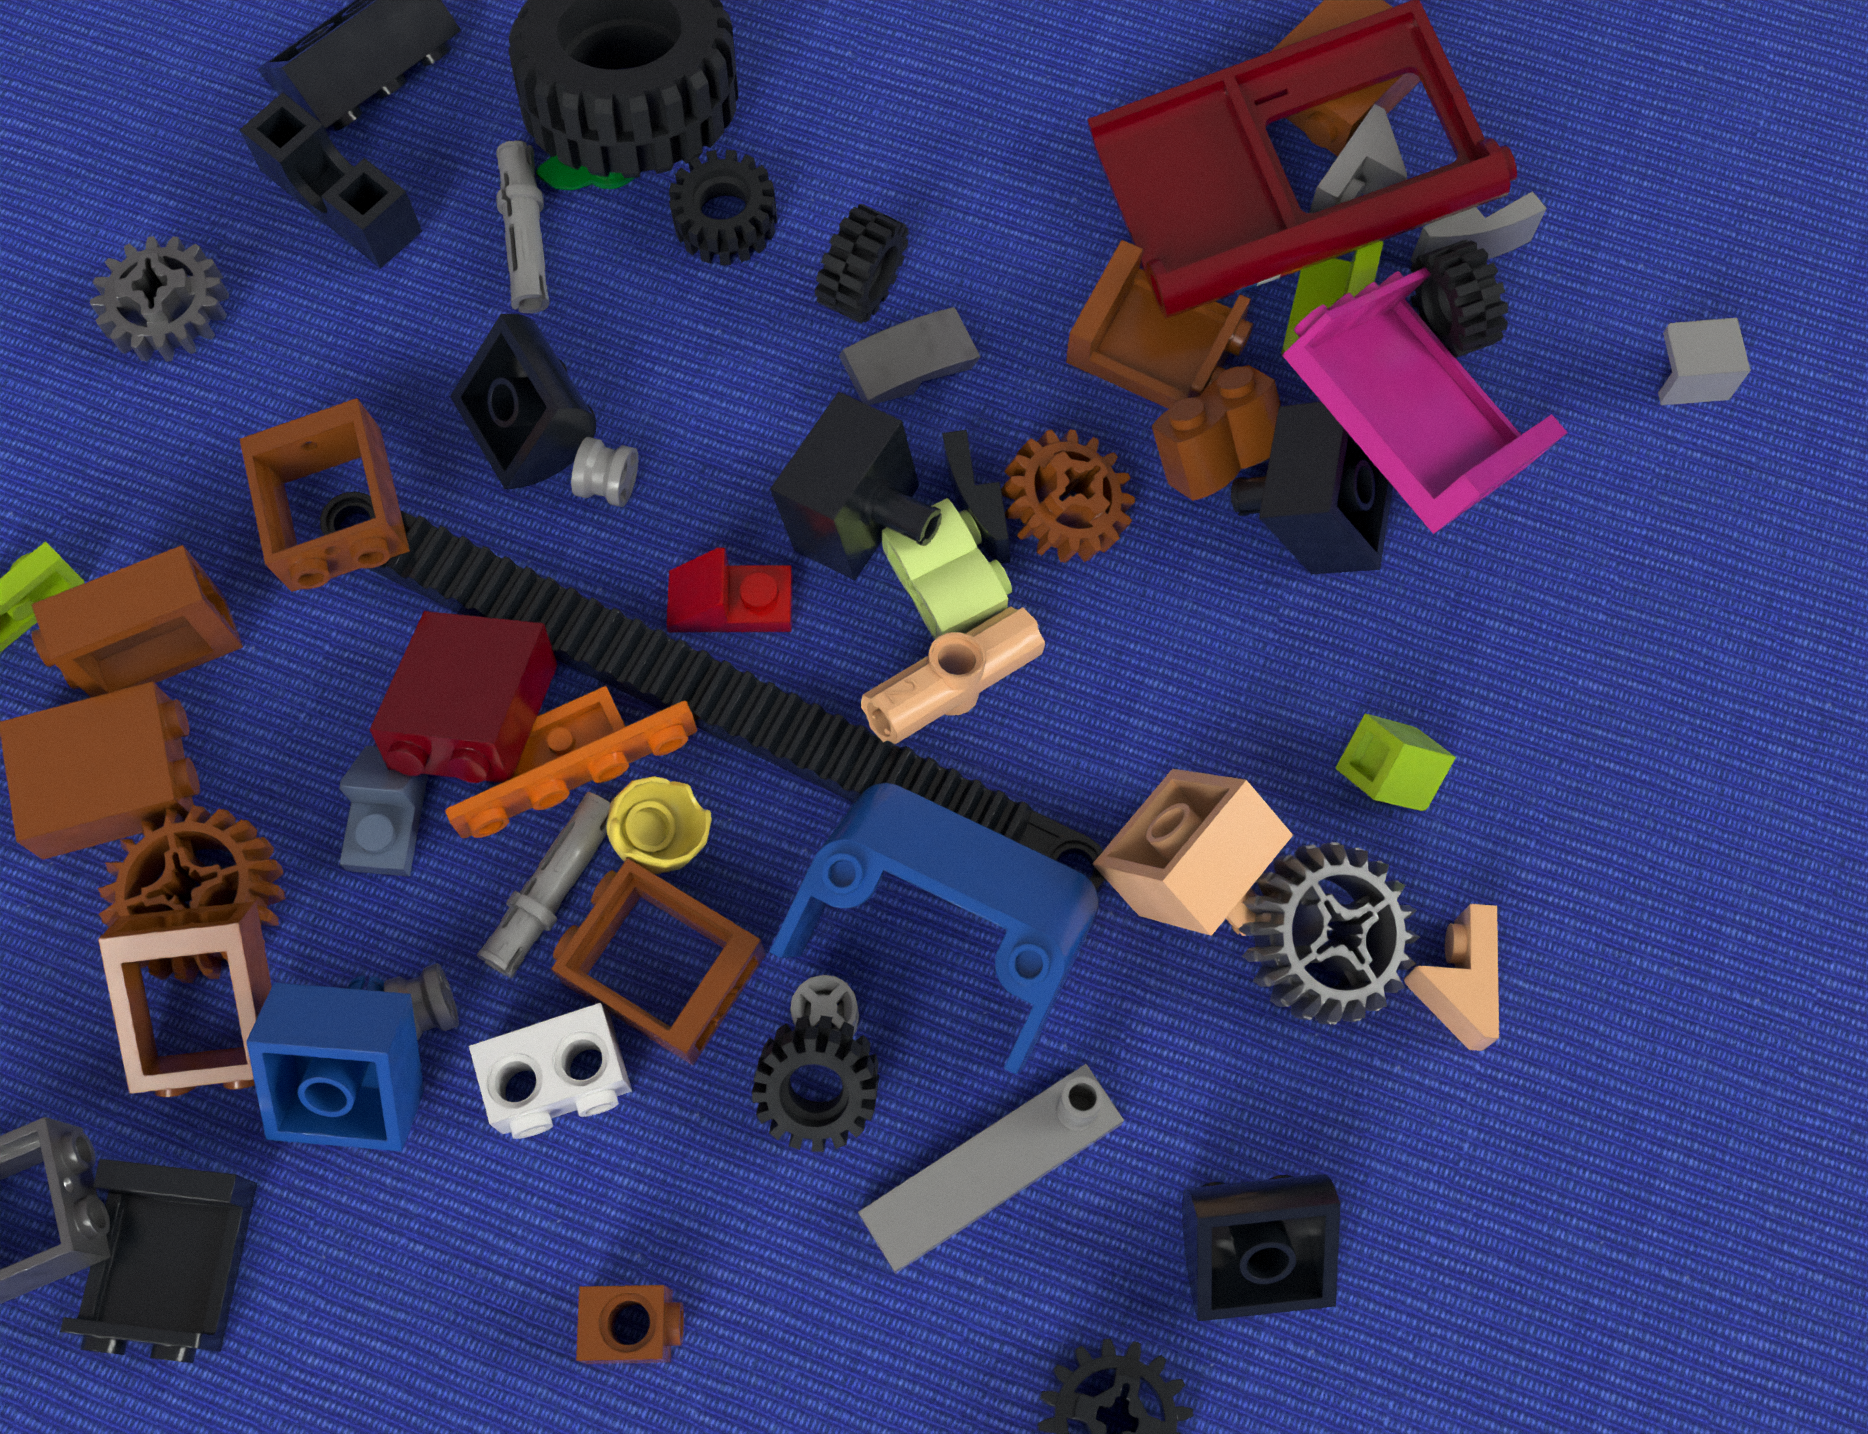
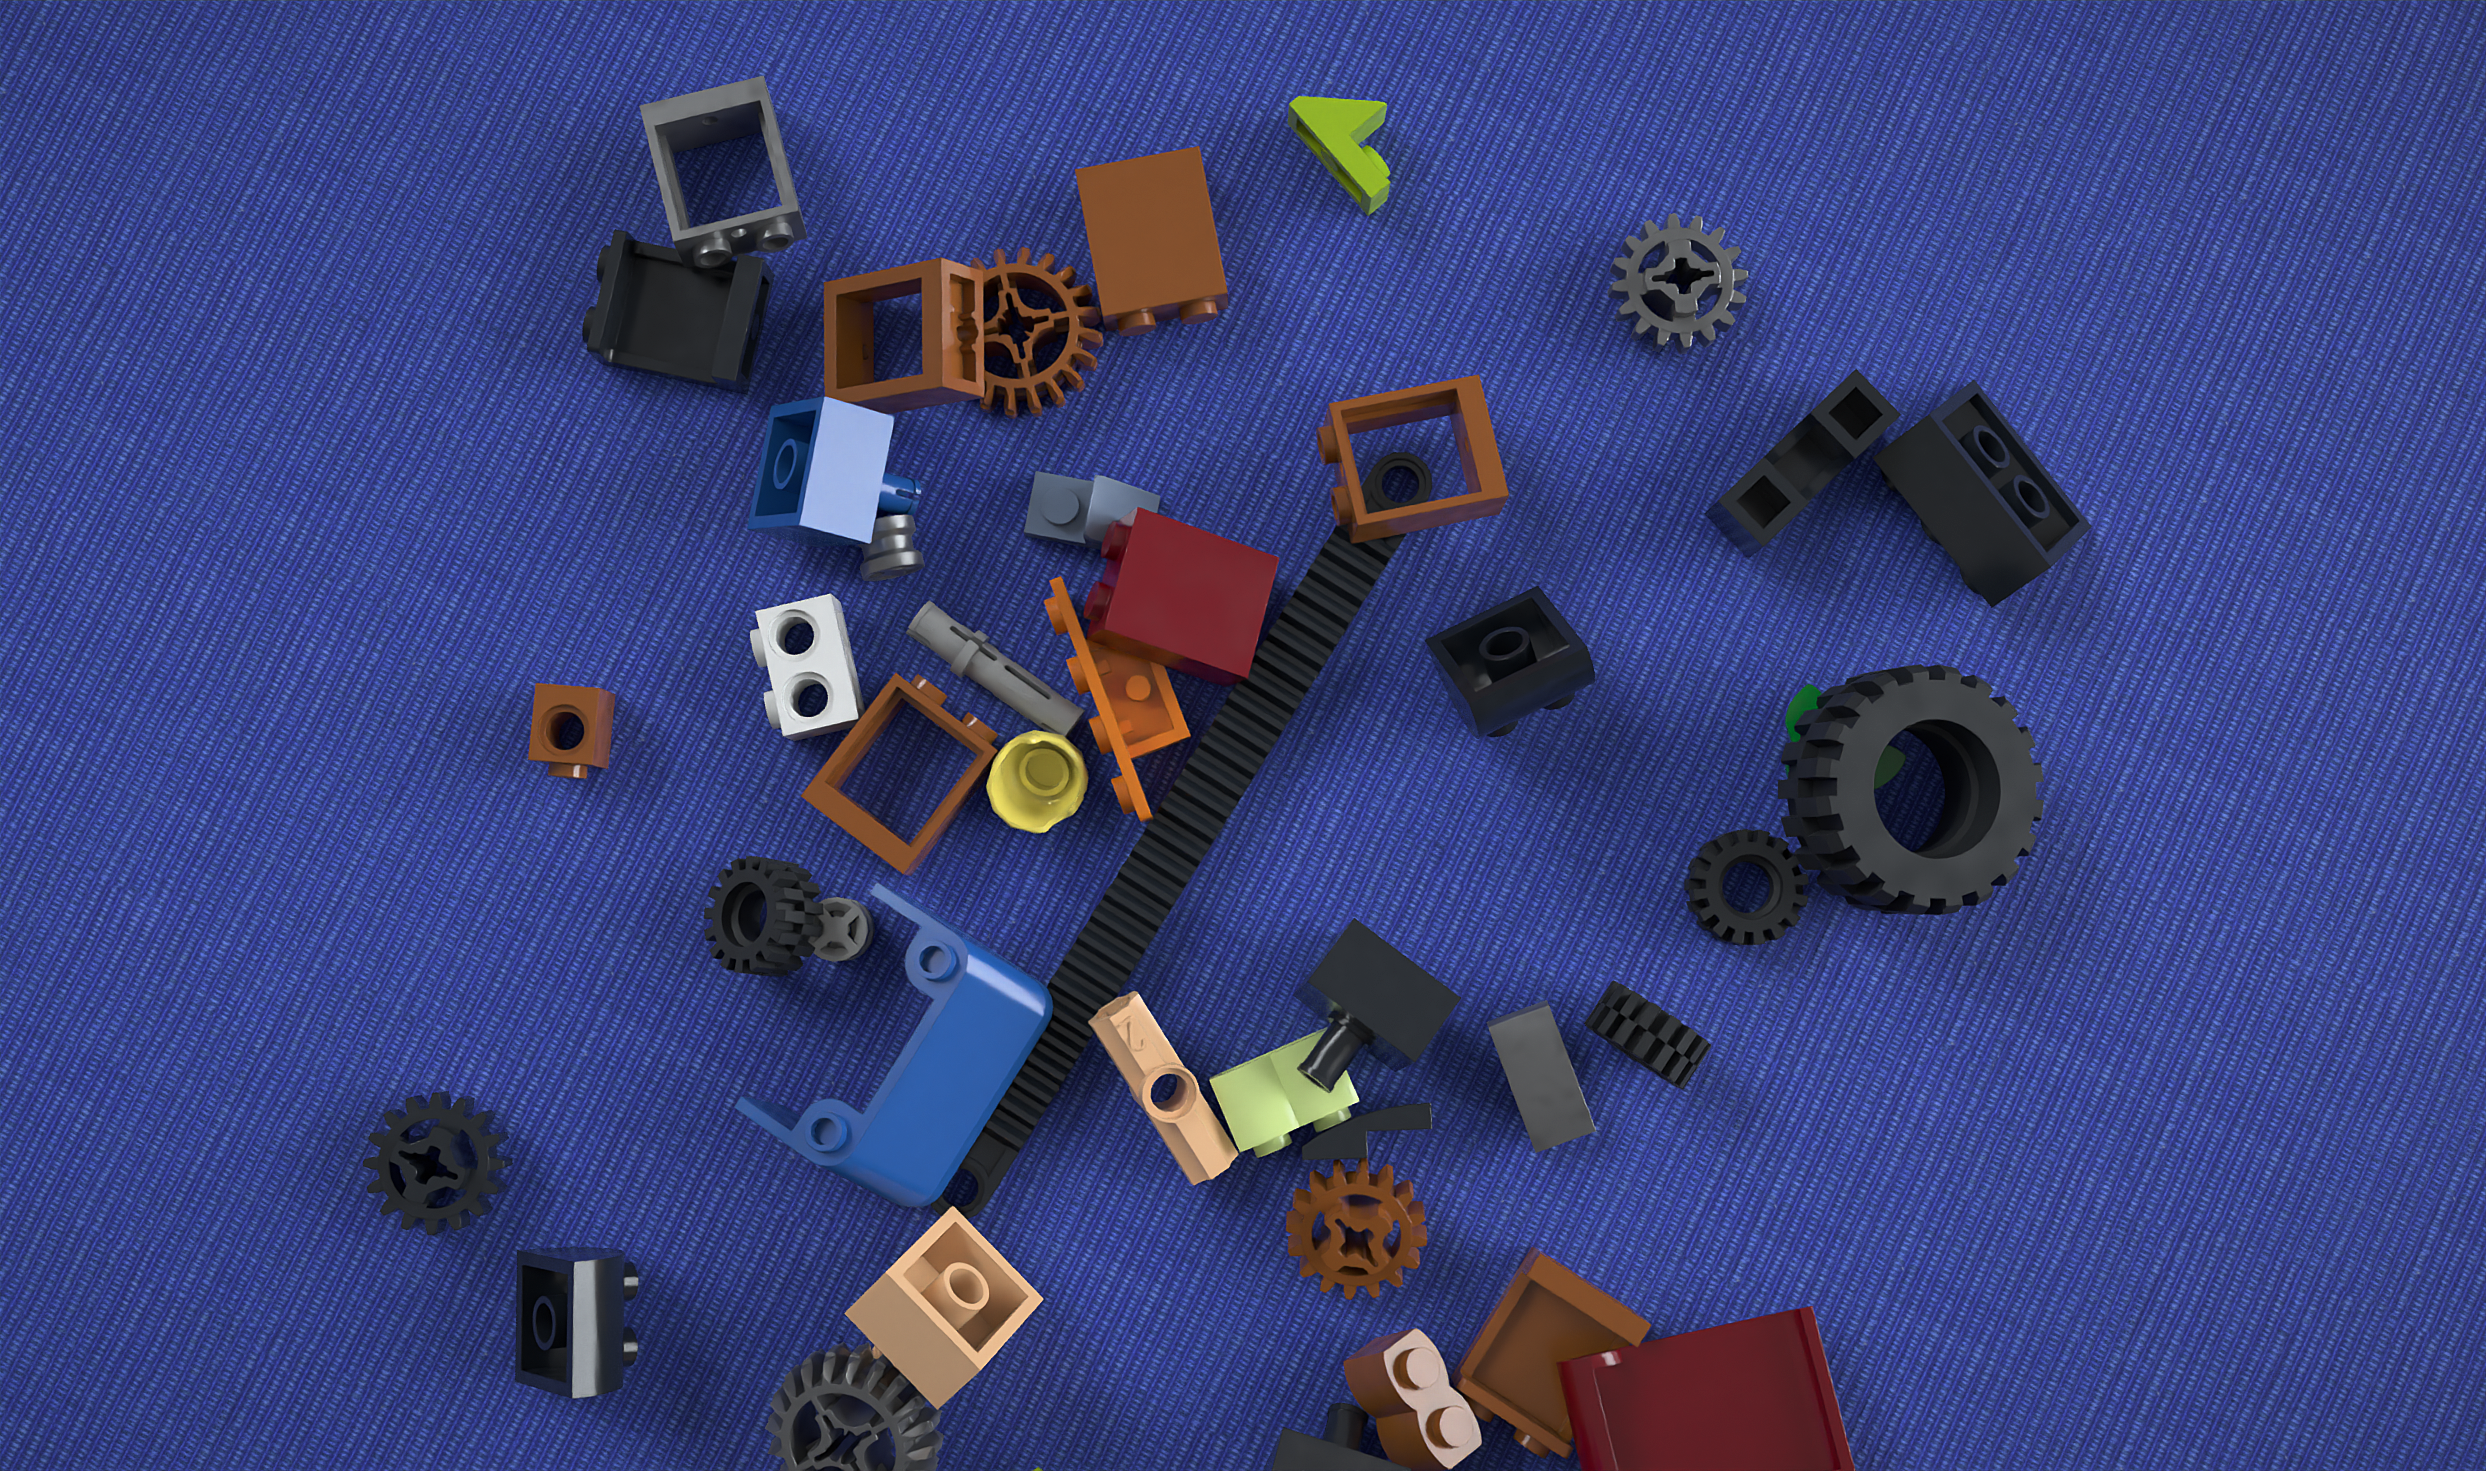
camera: 95 degrees right, 15 degrees up
(135, 625) = (1287, 274): dark orange window -> none
(521, 207) = (1752, 666): light grey pin -> none
(604, 471) = (1431, 744): light grey wheel -> none
(726, 598) = (1284, 864): red slope -> none
(990, 1168) = (680, 1074): light grey piece -> none

